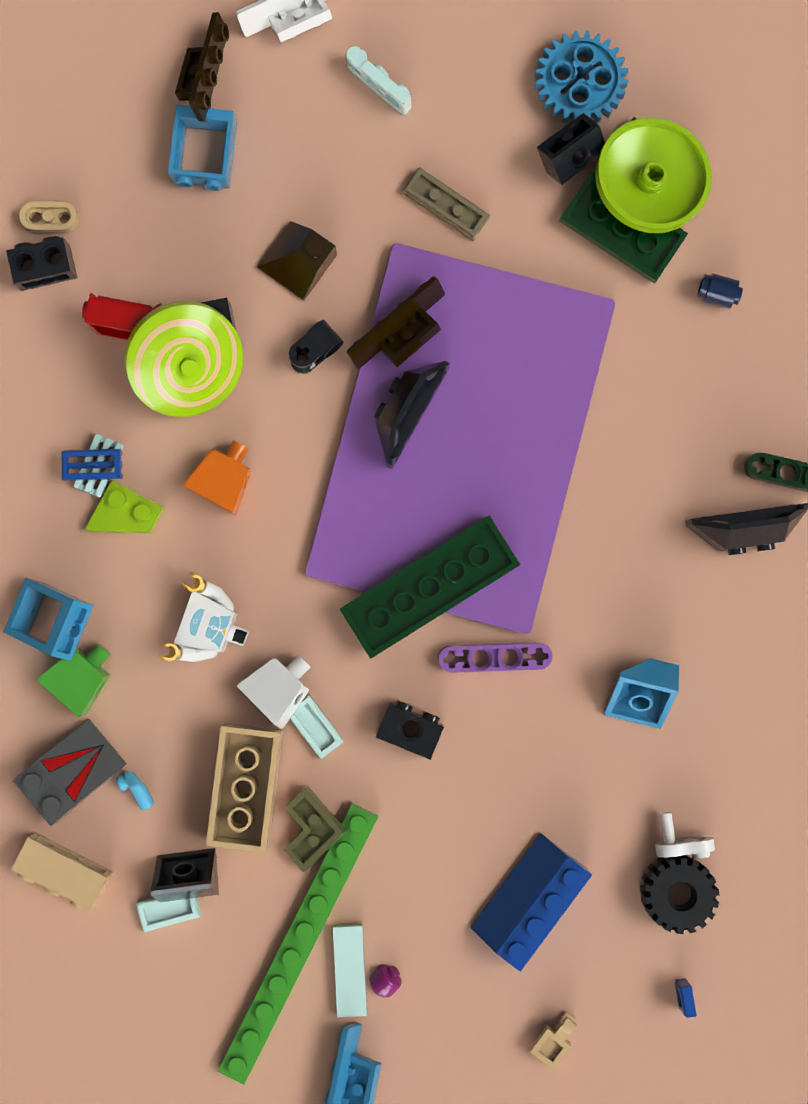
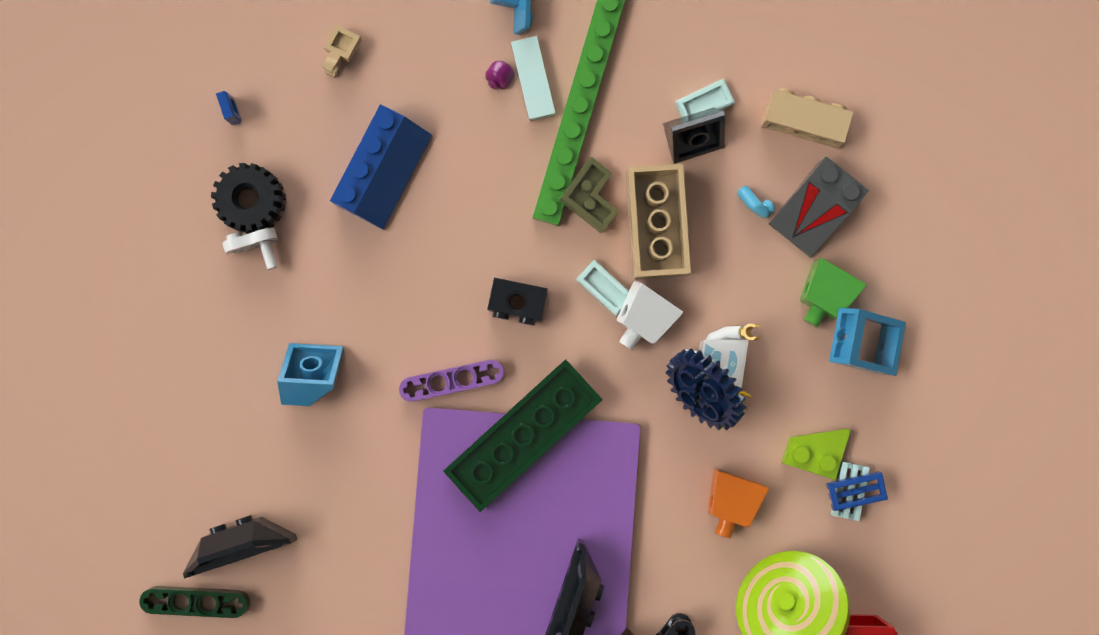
camera: 165 degrees right, 0 degrees up
(222, 600) = (710, 389): none -> dark blue gear

